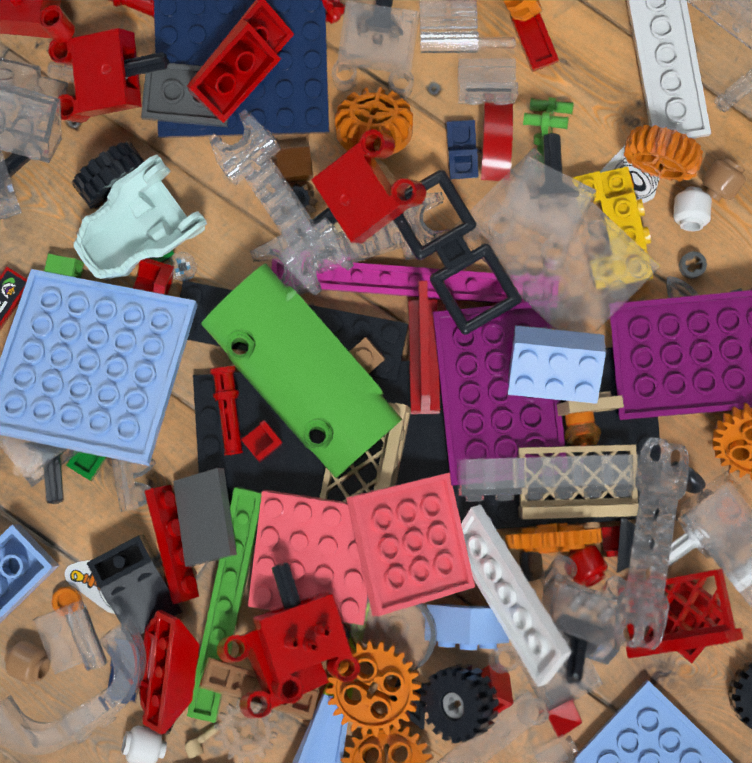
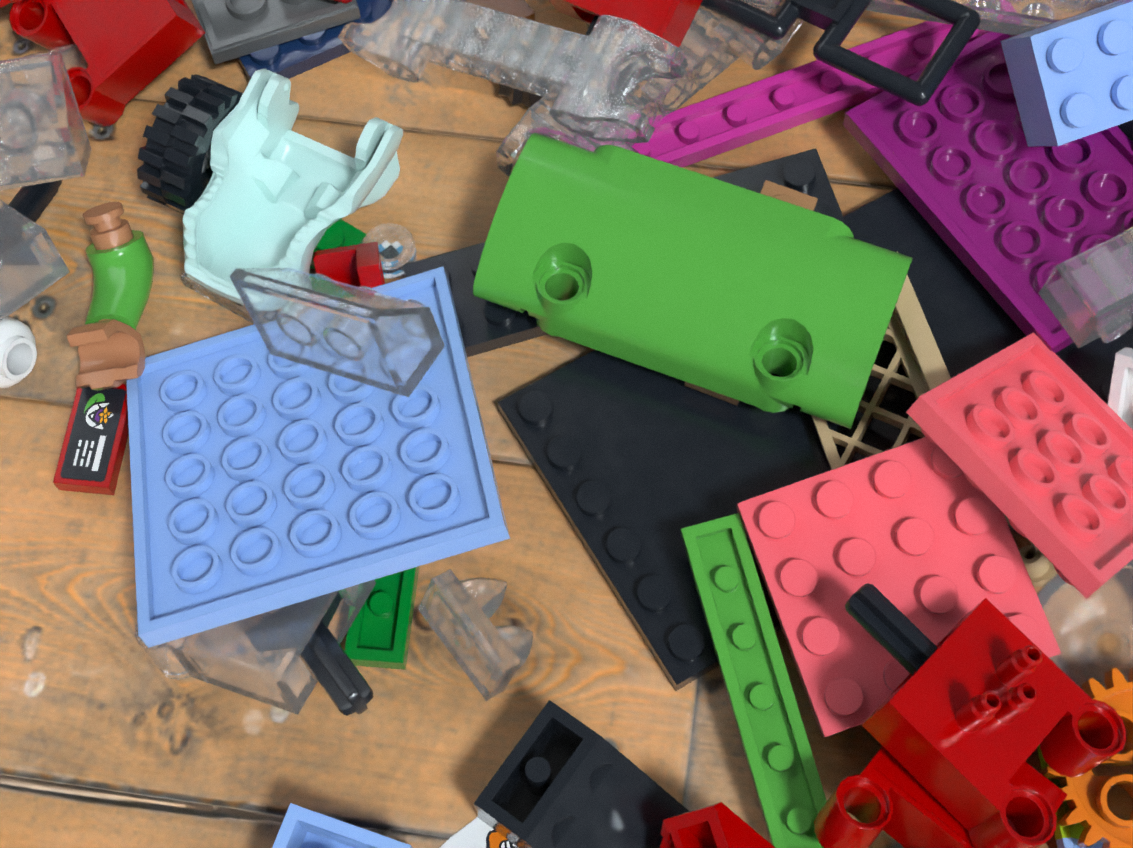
camera: 25 degrees left, 20 degrees down
(44, 228) = (122, 284): none -> piece
(64, 266) = (181, 330): bright green piece -> none
(130, 317) = (341, 327): none -> clear slope
(168, 536) = (630, 717): red plate -> none
(204, 517) = (655, 617): dark grey tile -> none
(225, 395) = (573, 396): red pin -> none
(262, 441) = (684, 435): red panel -> none
(423, 354) = (872, 163): red fence -> none

